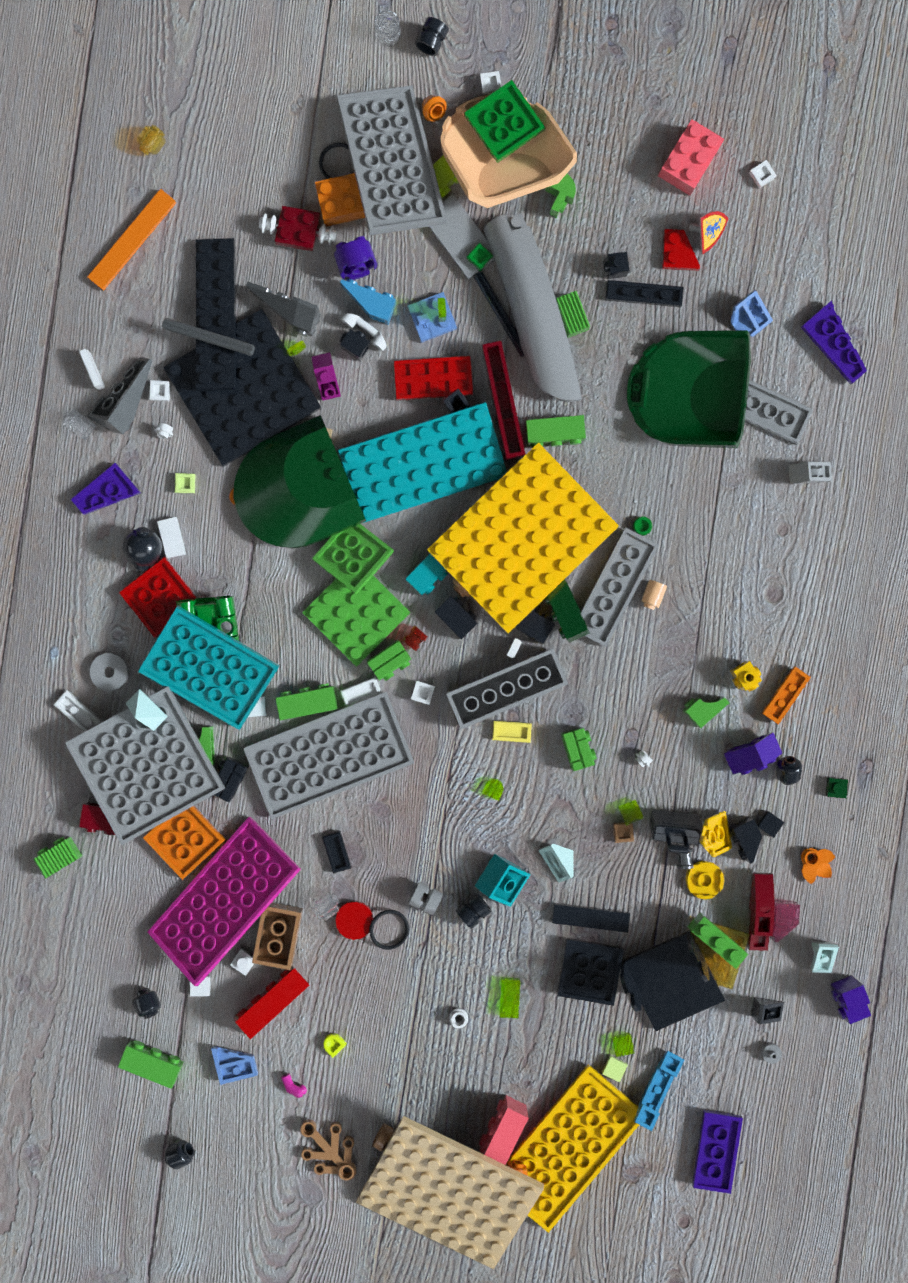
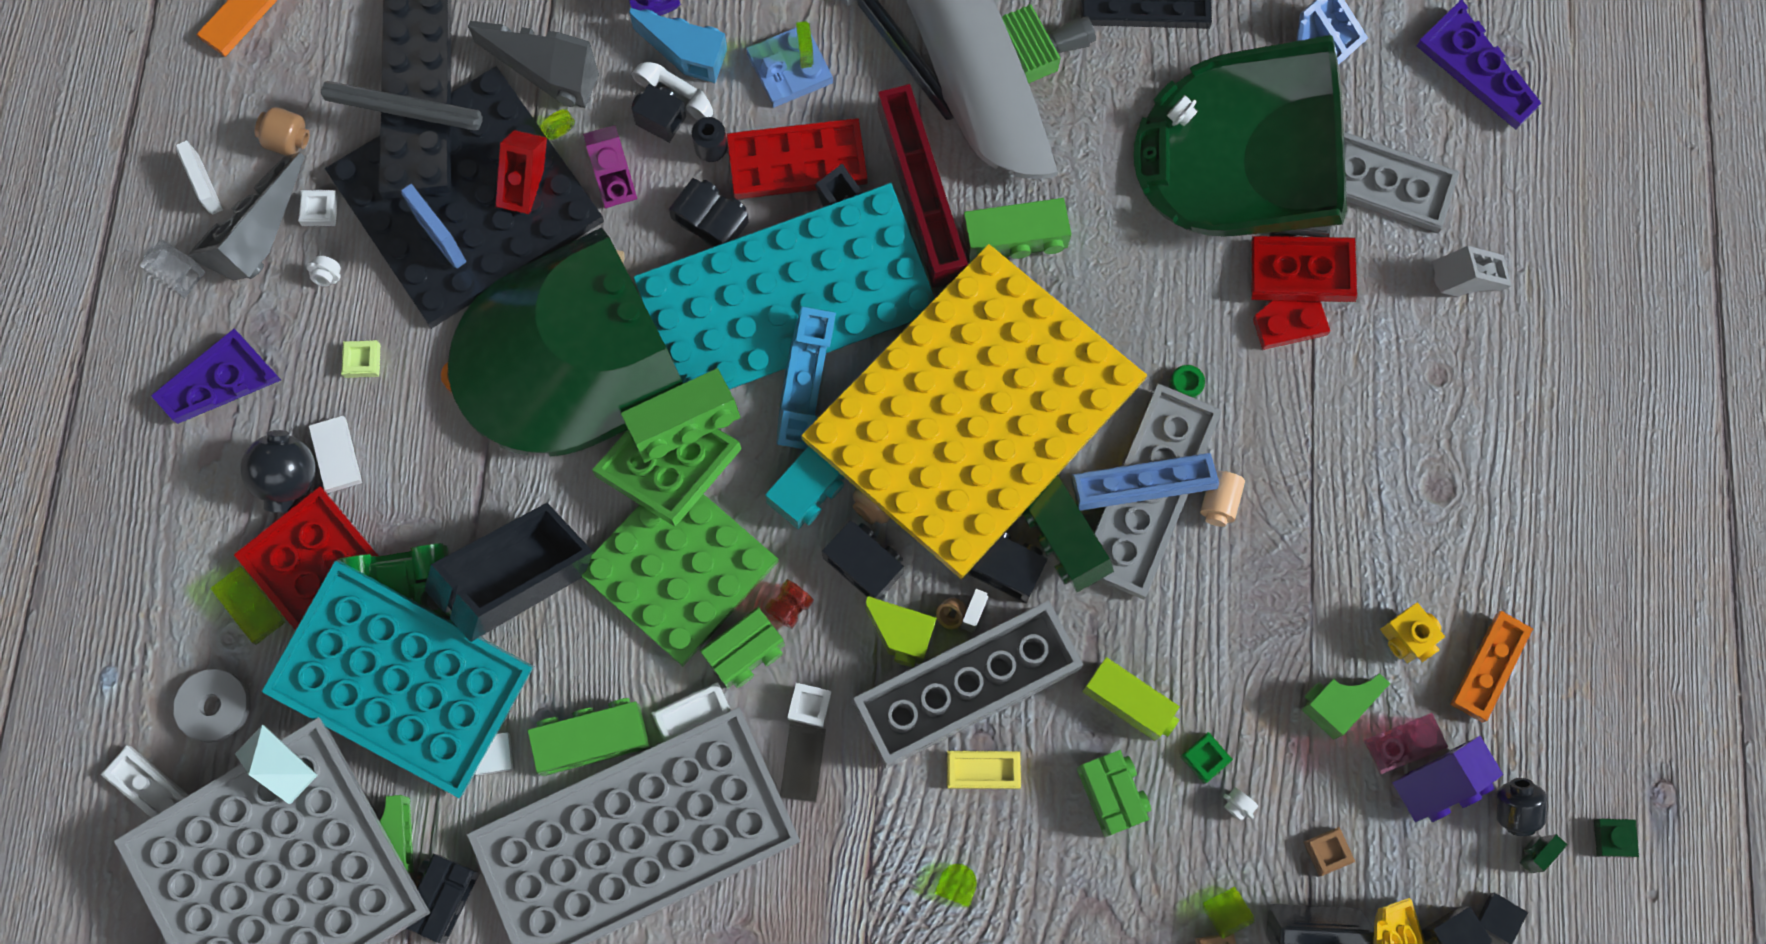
camera: 10 degrees left, 15 degrees down
(126, 619) = (247, 605): none -> clear neon green plate
(138, 344) = (281, 131): none -> medium nougat head
(226, 413) = (433, 226): none -> medium blue tile
(267, 614) = (508, 571): none -> black piece
(275, 379) = (520, 170): none -> red slope
(361, 533) = (681, 415): none -> bright green brick
(382, 410) = (709, 214): none -> black brick
(383, 370) = (709, 139): none -> black brick
(417, 722) = (803, 763): none -> clear smoke tile
(429, 512) = (803, 375): none -> dark azure slope
(474, 657) = (901, 630): none -> lime slope
(498, 651) = (944, 610): none -> medium nougat hinge
(593, 701) = (1132, 700): none -> lime brick
(598, 309) = (1073, 35): none -> dark grey cone
(612, 584) = (1144, 481): none -> medium blue tile
(629, 732) = (1206, 758): none -> green tile
(657, 364) = (1182, 111): none -> white plate
(686, 784) = (1329, 851): none -> medium nougat tile
(706, 490) = (1290, 323): none -> red wing
(716, 465) = (1303, 269): none -> red tile
(733, 734) = (1406, 743): none -> clear pink slope
(796, 793) = (1542, 852): none -> dark green plate

